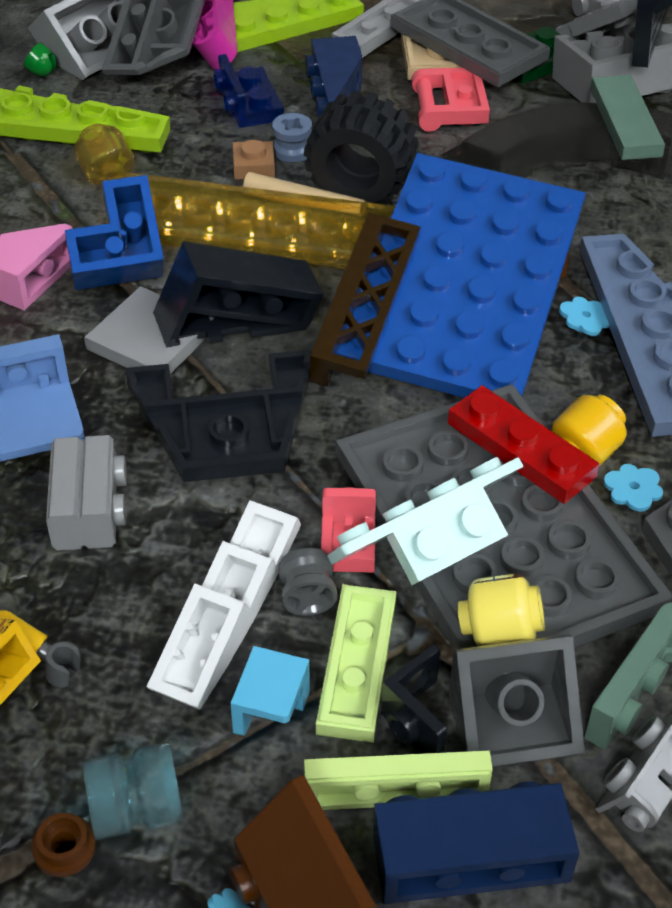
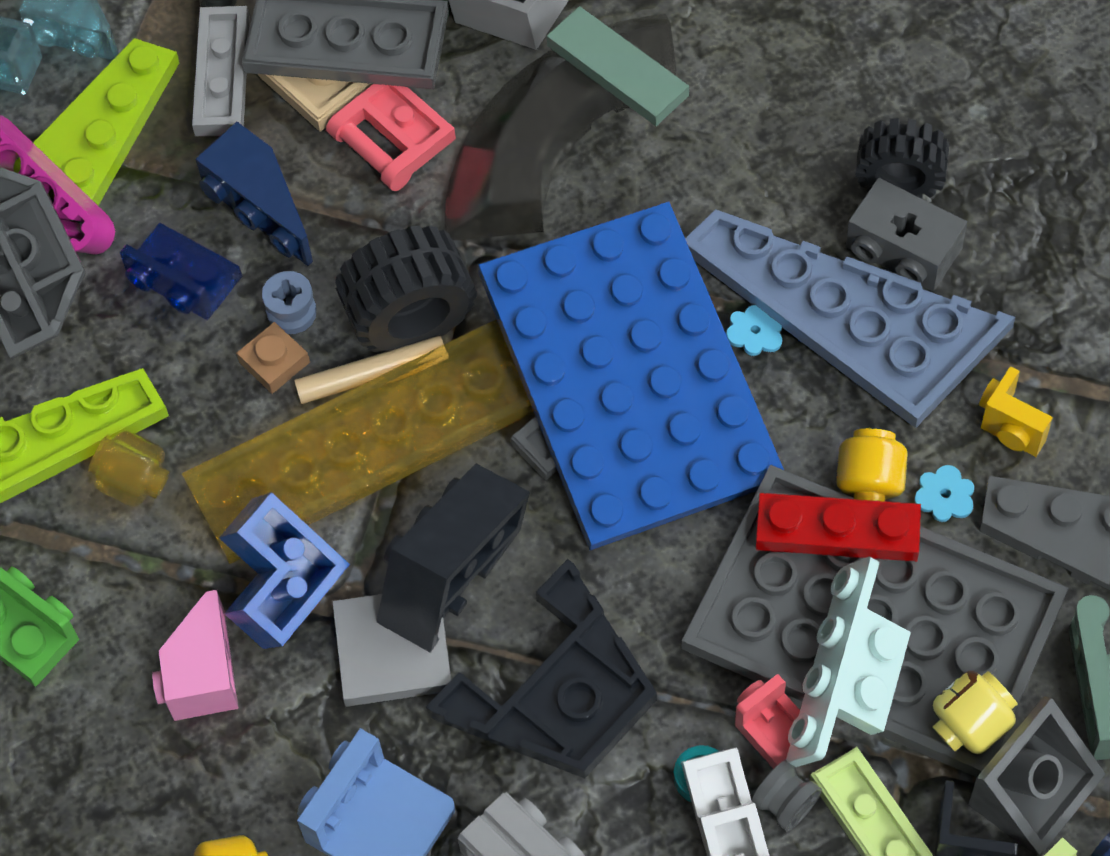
camera: 35 degrees left, 15 degrees up
(349, 295) = (556, 479): dark brown fence -> none

